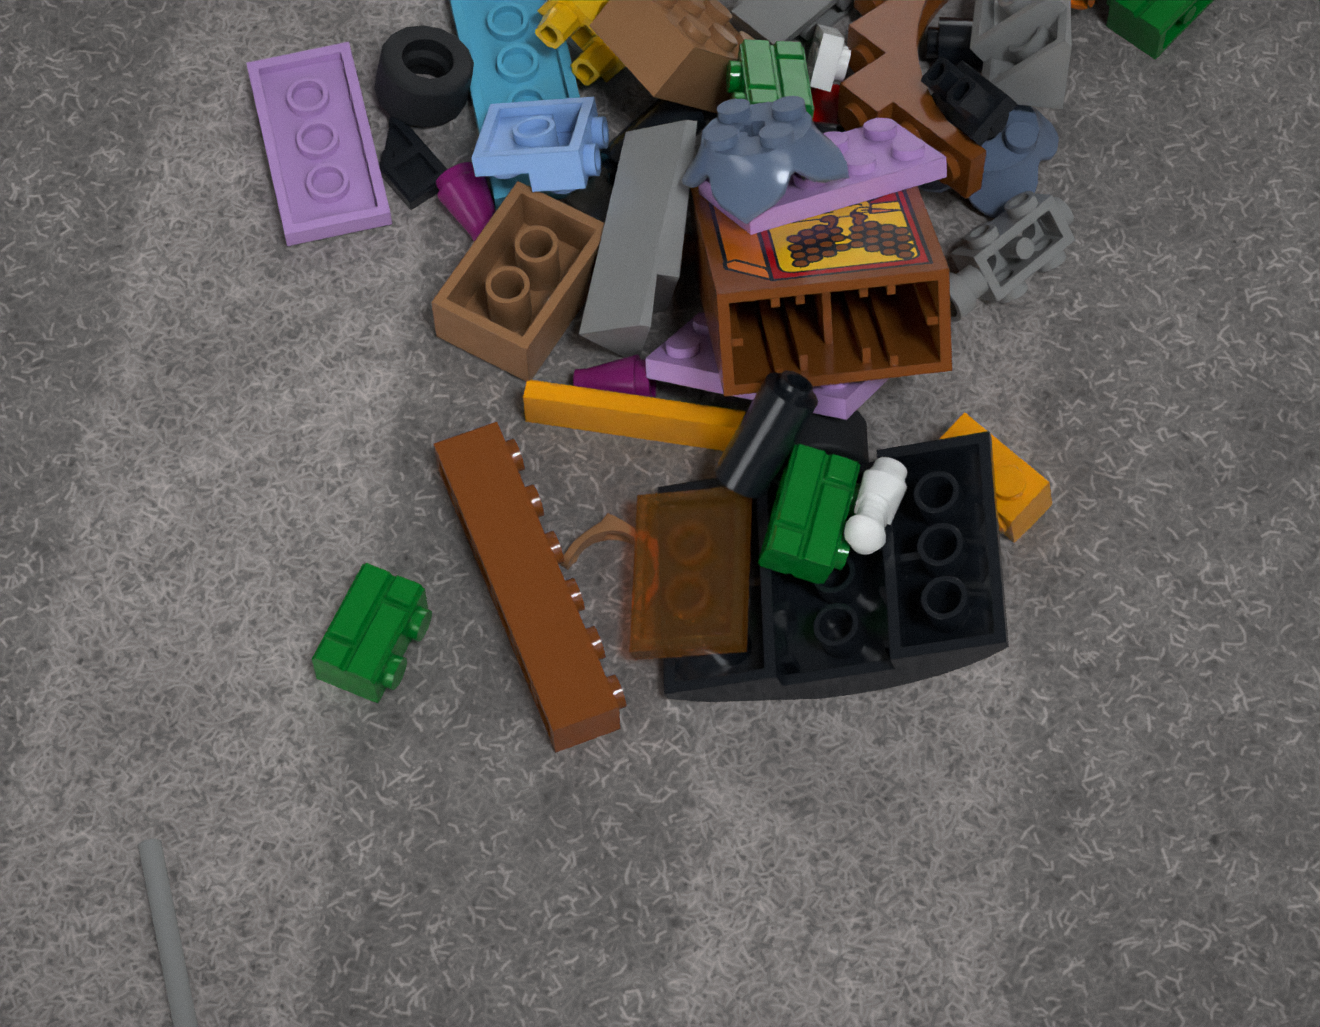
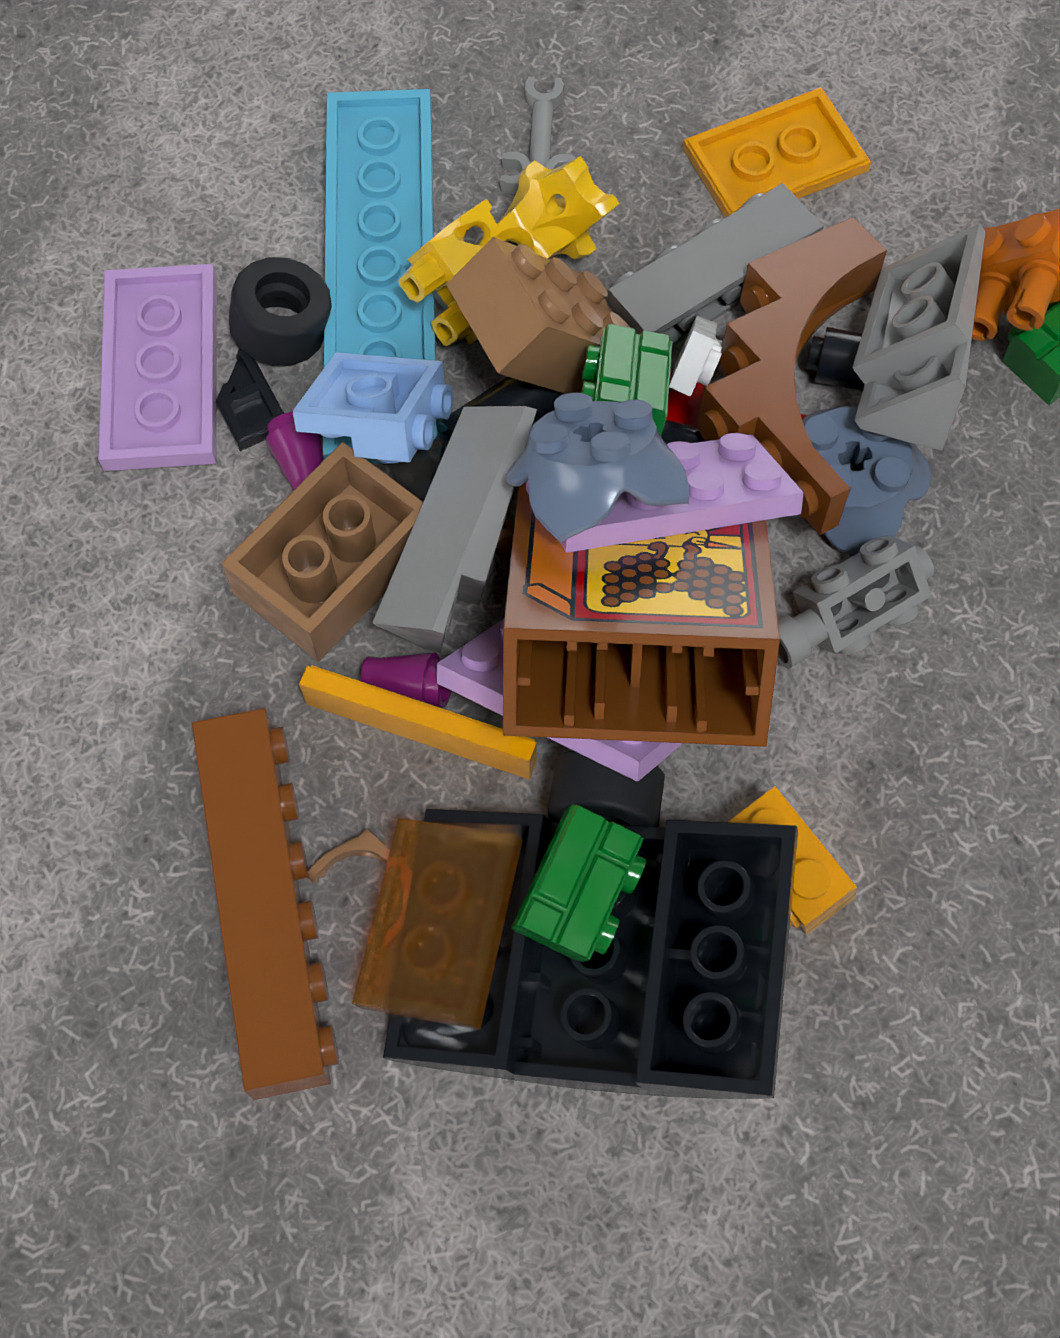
camera: 10 degrees right, 5 degrees up
(371, 633) = (82, 928): green brick -> none
(766, 434) = (544, 785): black brick -> none
(876, 505) = (652, 891): white arm -> none
(968, 99) = (840, 427): black hips -> none

